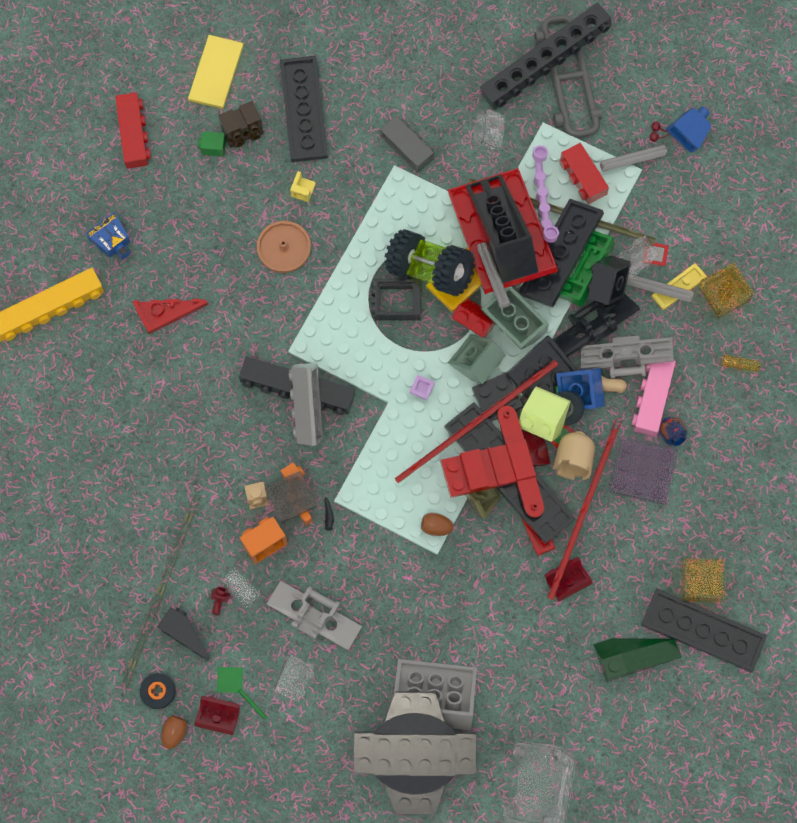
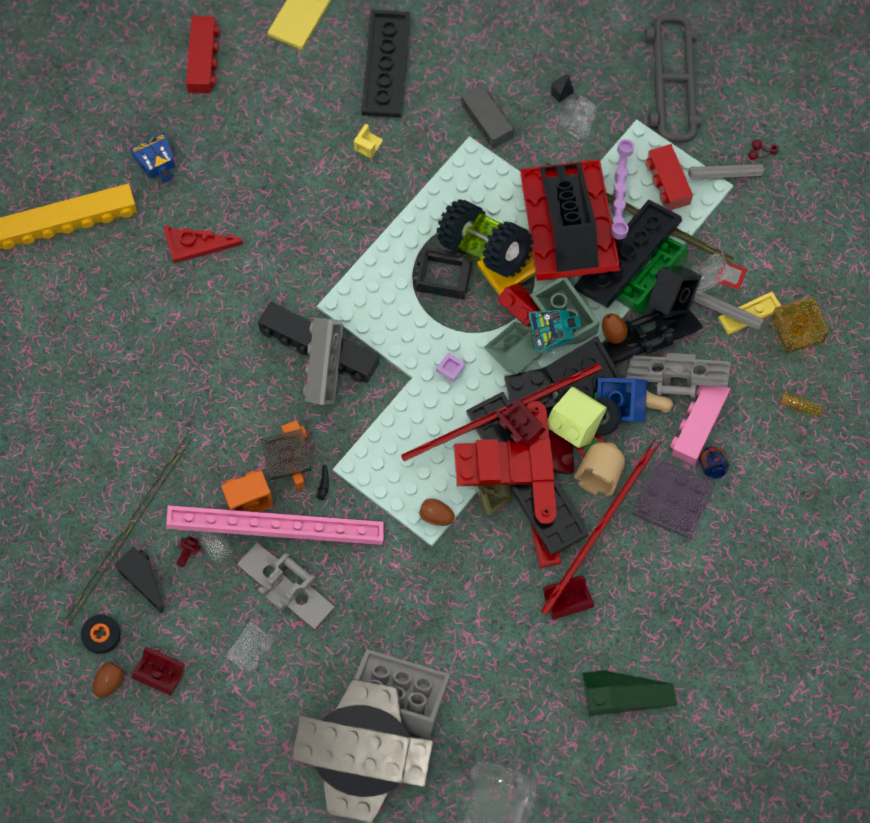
camera: 10 degrees right, 5 degrees down
(212, 144) = (282, 82): green brick -> none
(230, 680) = (181, 638): green piece -> none
(241, 124) = (316, 67): dark brown brick -> none
(256, 495) = (250, 448): tan brick -> none
(283, 246) = (335, 199): nougat piece -> none
(294, 563) = (274, 525): none -> bright pink plate
(469, 104) = (562, 88): none -> black slope
(493, 275) = (549, 261): light grey axle -> none
(497, 429) = (522, 423): none -> dark red bracket
(508, 337) = (552, 329): none -> torso
(549, 47) = (658, 43): black brick -> none
(561, 325) = (614, 328): none -> dark orange animal
(690, 128) = (794, 151): blue torso -> none
(703, 580) = (716, 626): clear yellow brick -> none
(704, 630) = (706, 680): black plate -> none

